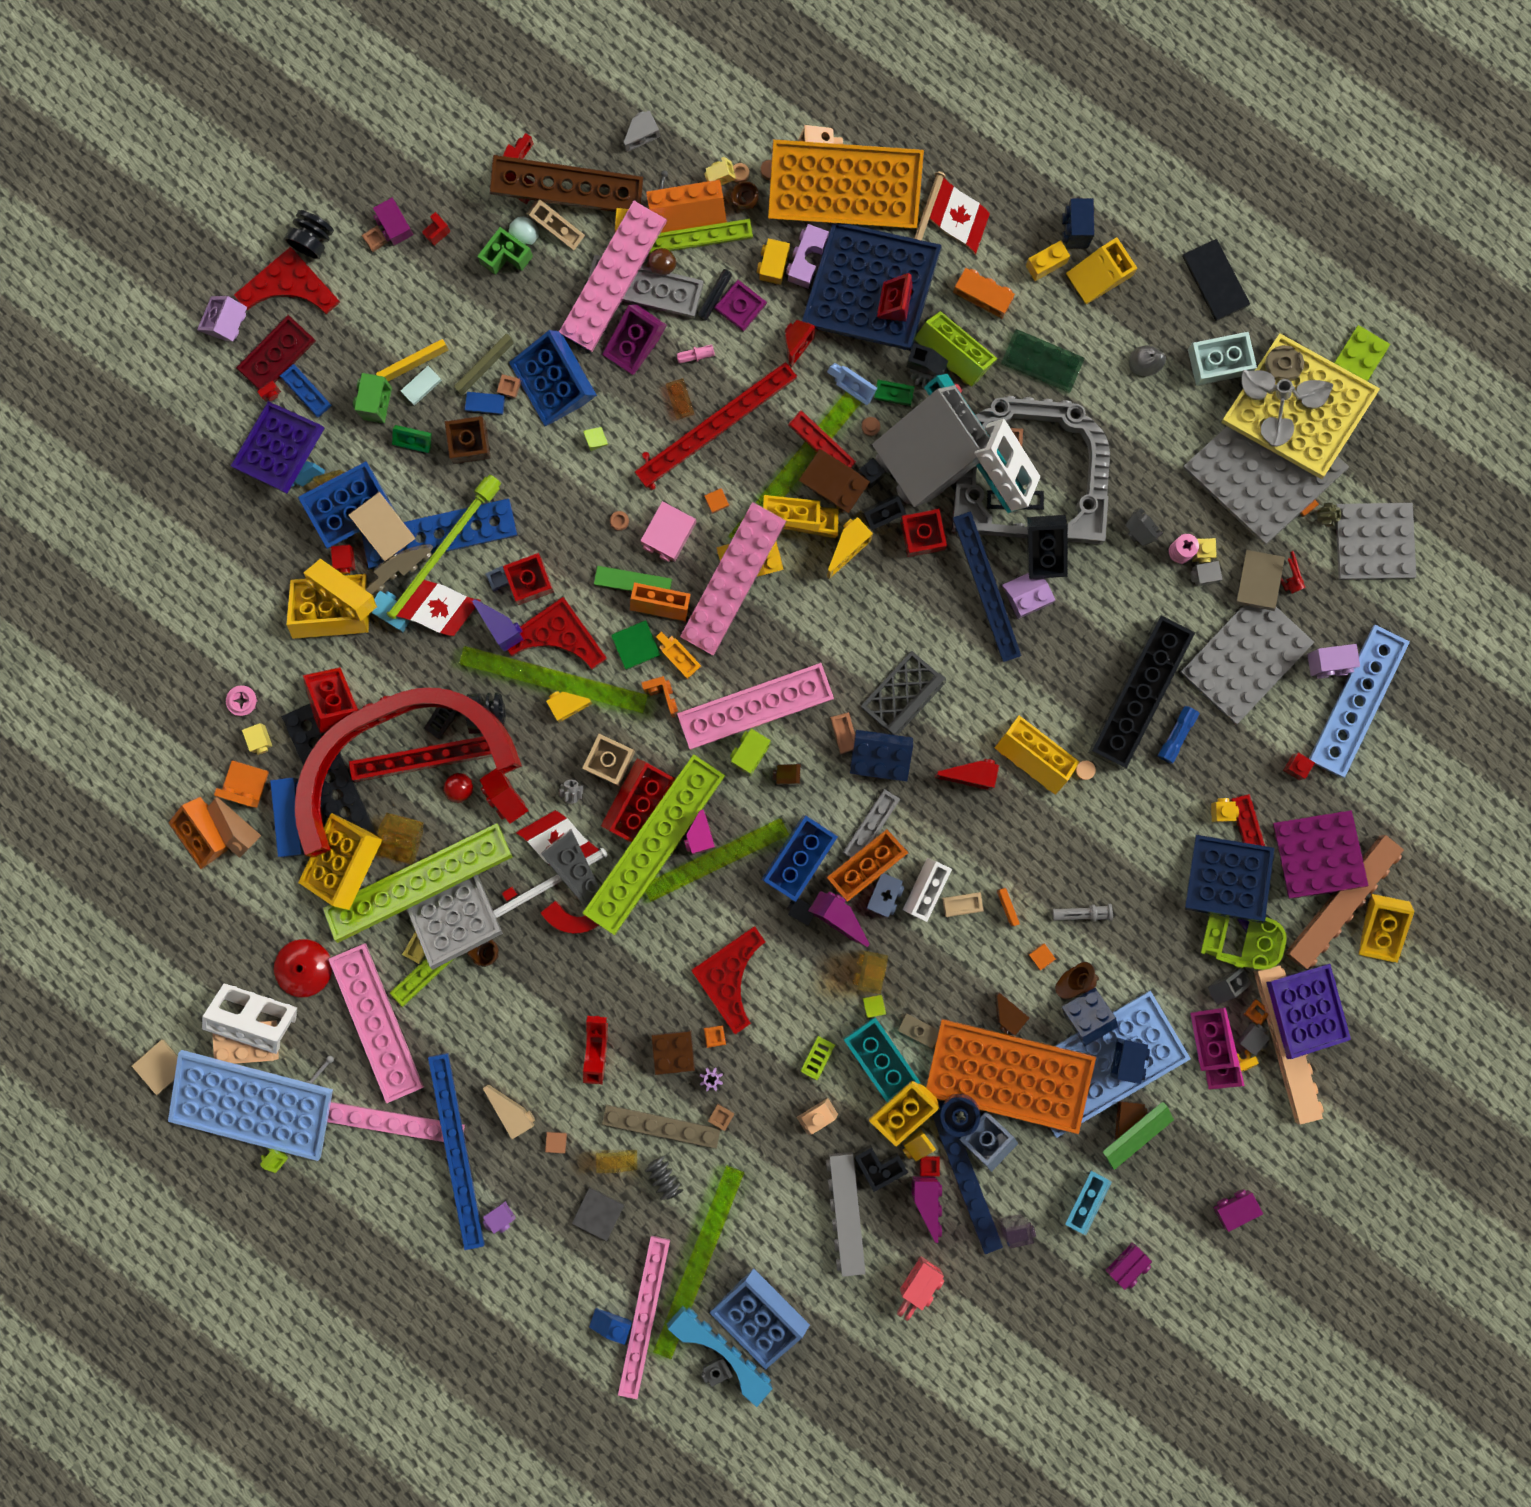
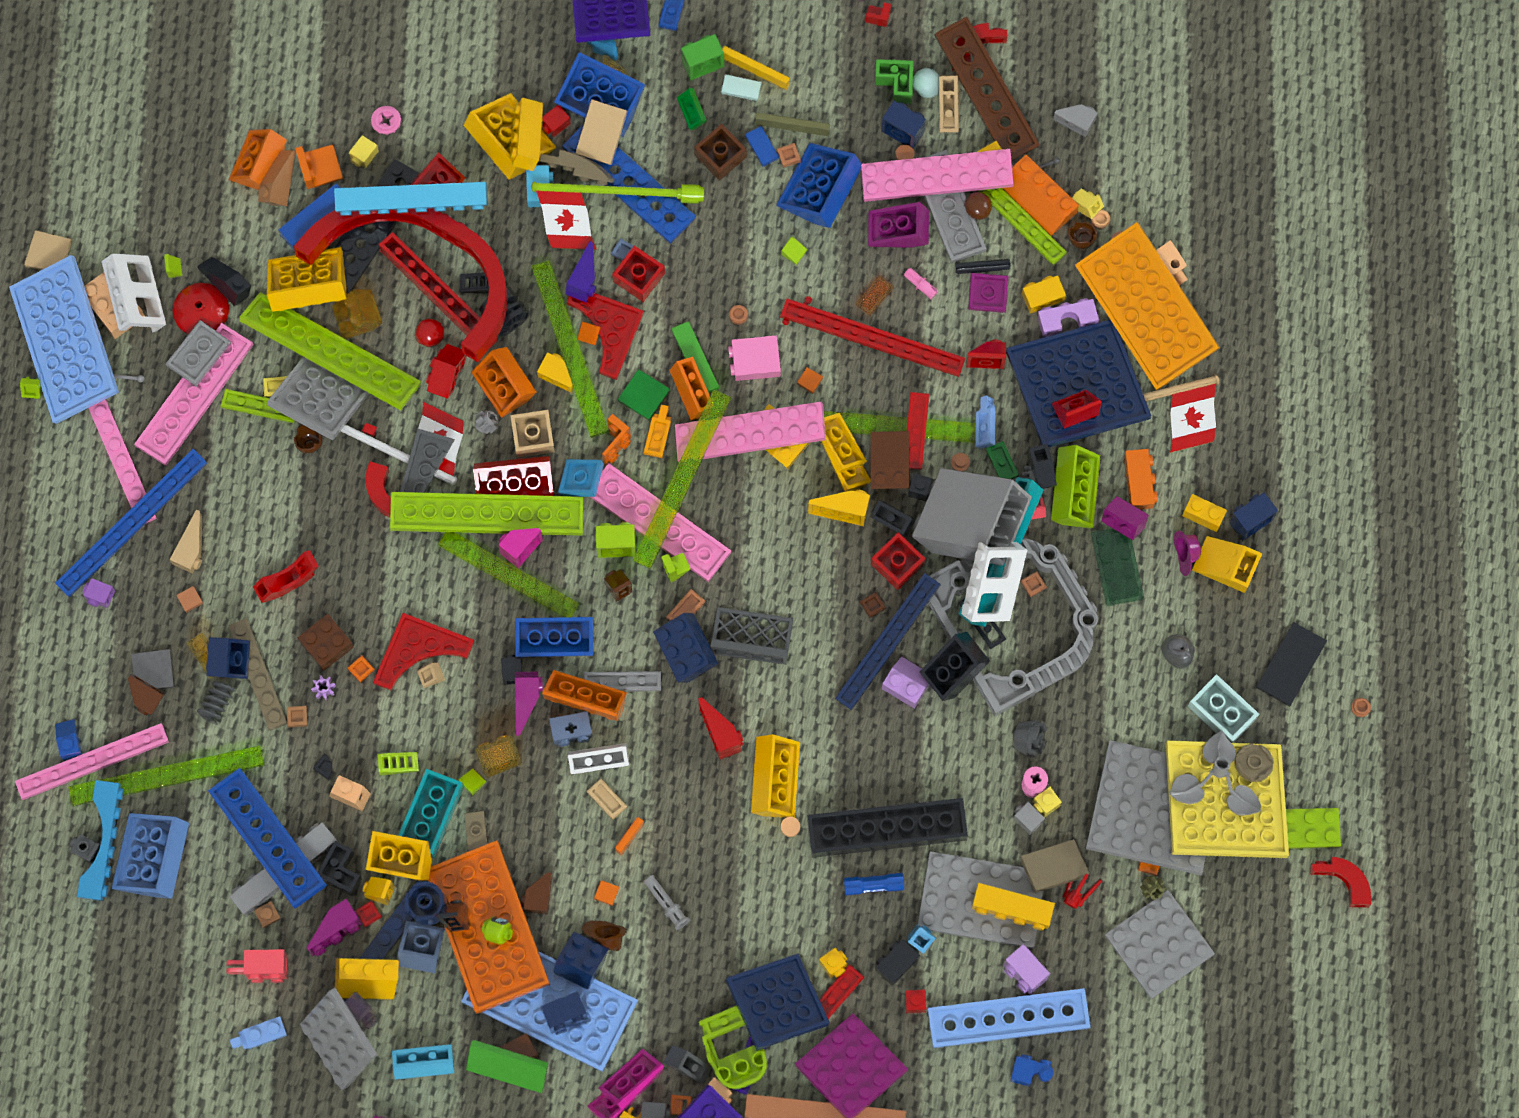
camera: 55 degrees right, 10 degrees down
(247, 967) = (172, 266): none -> lime slope
(291, 930) = (226, 280): none -> black slope
(330, 726) = (411, 197): none -> medium azure brick
(342, 997) = (198, 353): none -> light grey tile
(545, 753) = (503, 381): none -> orange slope
(549, 273) = (903, 124): none -> dark blue brick
(551, 655) = (588, 333): none -> orange tile
(572, 291) = (904, 152): none -> nougat tile
(616, 1236) = (144, 695): none -> reddish brown slope
(634, 1146) = (228, 658): none -> dark blue brick
(675, 745) = (581, 478): none -> dark azure plate
(735, 661) = (682, 479): none -> clear neon green plate
(759, 981) = (430, 674): none -> tan slope
(779, 1122) = (324, 767): none -> black tile
(805, 716) = (675, 566): none -> lime slope
(822, 1202) = (264, 850): none -> blue plate
(875, 1251) = (267, 914): none -> medium nougat plate
(943, 578) = (872, 605): none -> reddish brown tile
(973, 1323) = (260, 1034): none -> light blue hinge
(986, 1204) = (367, 977): none -> yellow slope
(988, 1099) = (454, 916): none -> slope
(1010, 326) = (1124, 518): none -> magenta brick
(1023, 1071) = (497, 930): none -> lime head
(1030, 1265) = (338, 1039): none -> light grey plate
(1071, 297) = (1187, 550): none -> magenta piece
(1251, 727) = (921, 938): none -> dark azure brick
(1255, 759) = (896, 962): none -> black brick
(1276, 634) = (1013, 906): none -> yellow brick
(1287, 250) = (1360, 707): none -> nougat plate
(1409, 716) = (1025, 1068): none -> blue brick
(1428, 352) = (1351, 875): none -> red arch

